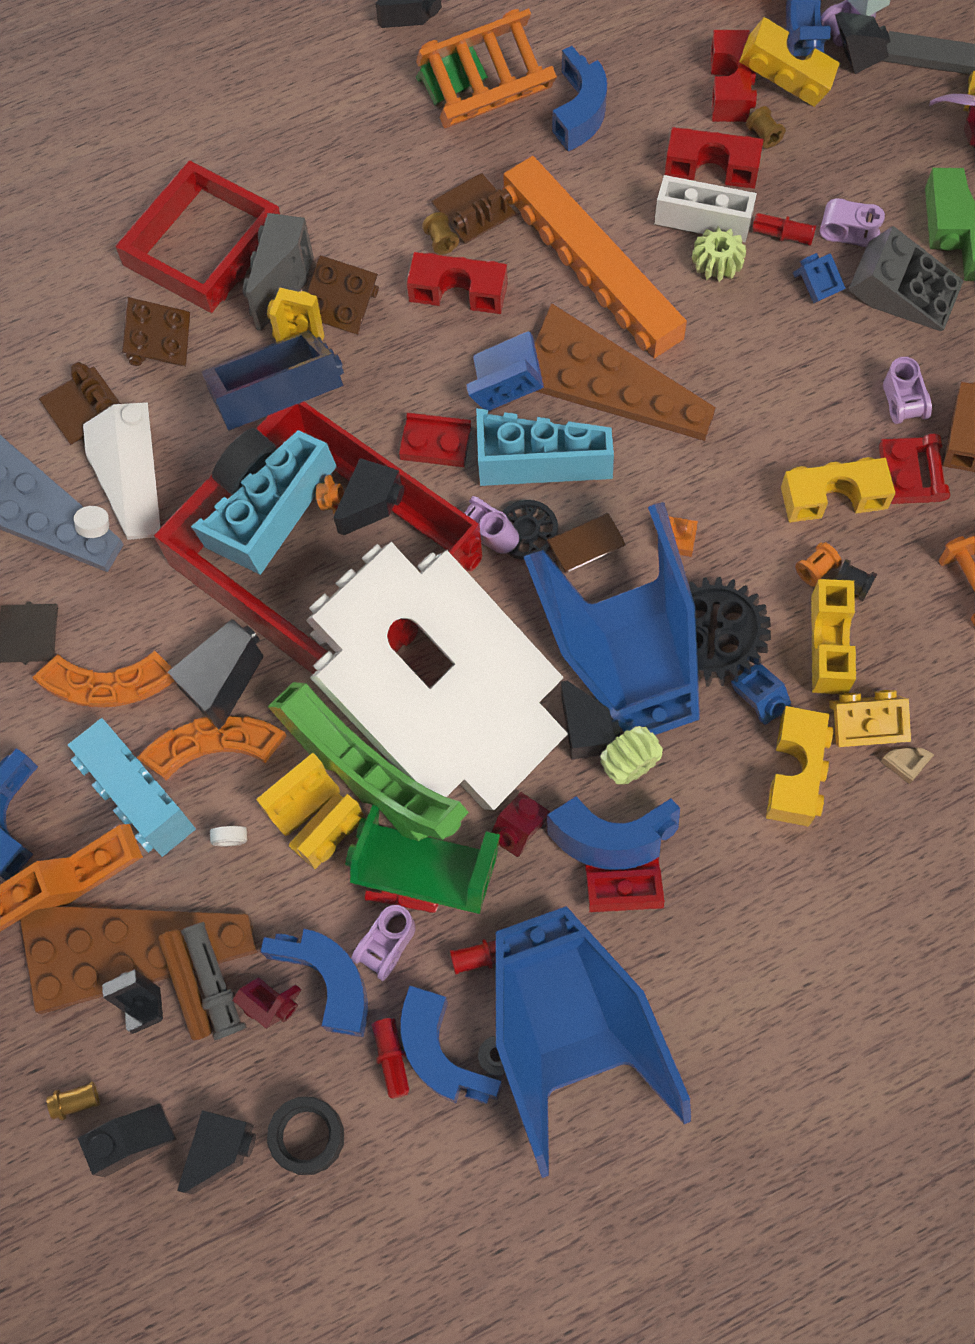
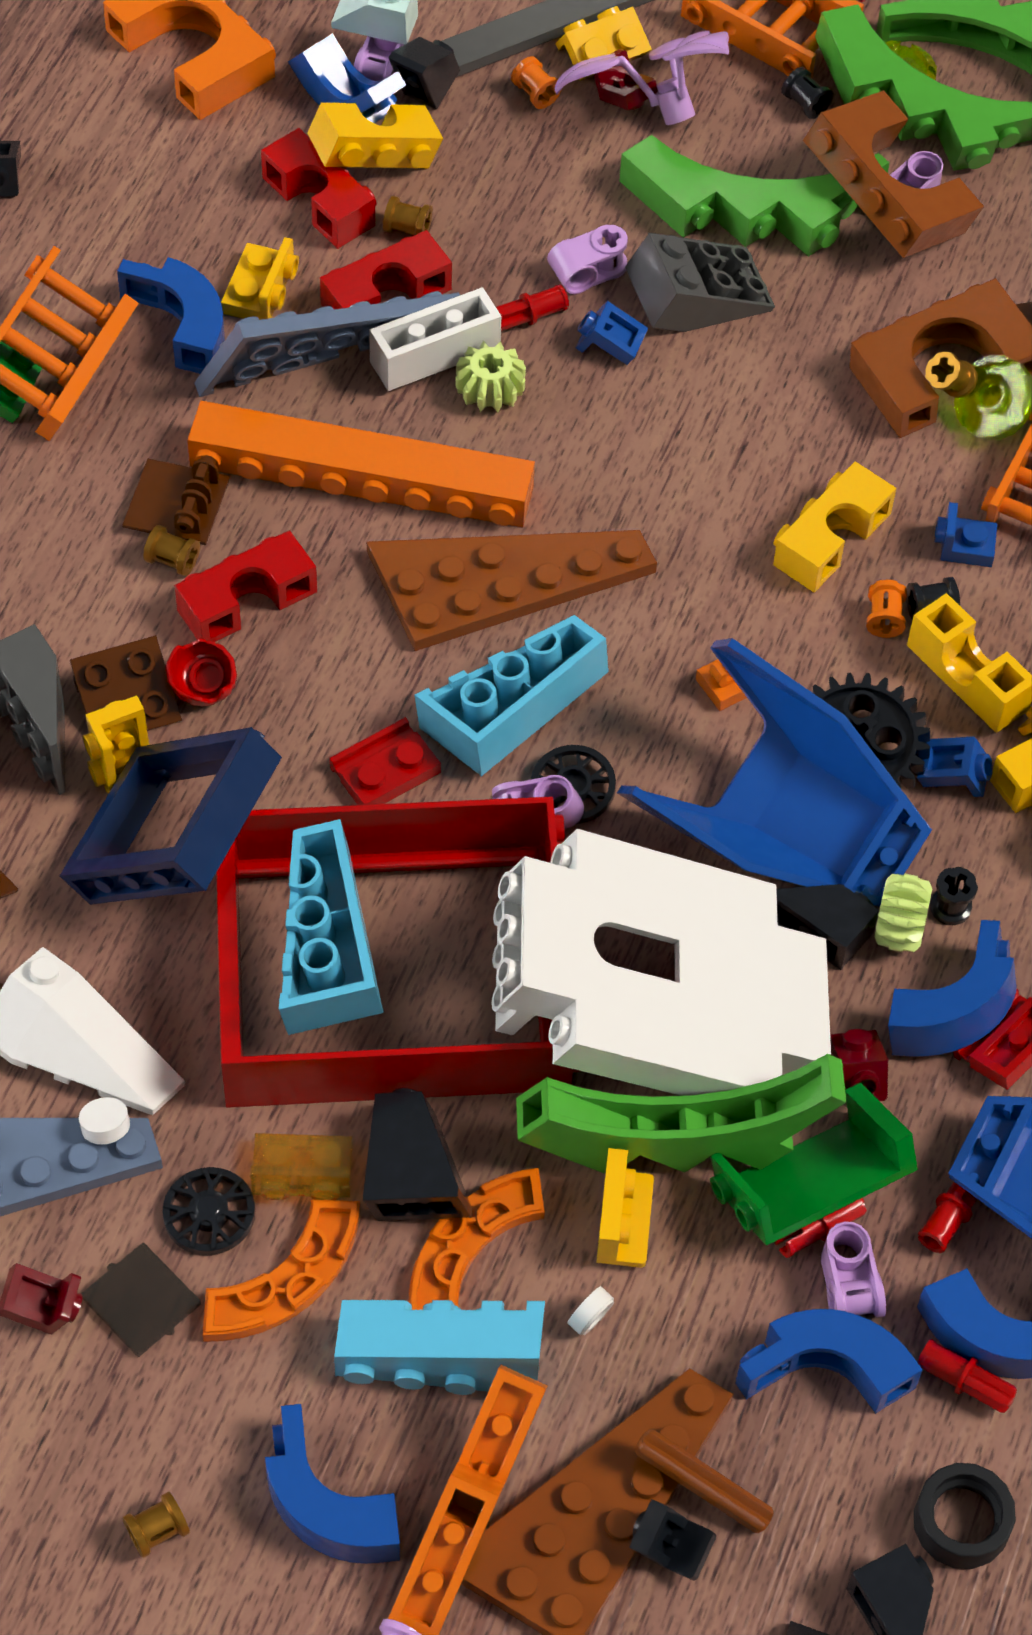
camera: 50 degrees left, 10 degrees down
(103, 614) = (208, 1211): none -> black wheel
(169, 627) = (301, 1166): none -> clear yellow bracket
(218, 998) = (749, 1465): dark grey pin -> none
(241, 458) = (260, 907): black tyre -> none
(265, 1004) = (795, 1435): dark red bracket -> none
(327, 829) = (682, 1220): yellow bracket -> none
(329, 494) = (377, 878): orange plate -> none
(368, 496) = (418, 847): black slope -> none
(383, 312) = (201, 672): none -> red hair
(506, 372) = (397, 639): blue bracket -> none
(585, 543) = (651, 750): reddish brown slope -> none
(624, 158) = (301, 339): none -> sand blue wing
(644, 111) = (260, 281): none -> yellow bracket
(683, 761) = (958, 899): none -> black bush
(905, 469) = (858, 447): red plate -> none
(909, 396) = (803, 388): lavender piece -> none
(916, 557) = (965, 539): none -> blue bracket
(928, 89) = (535, 82): none -> orange bush

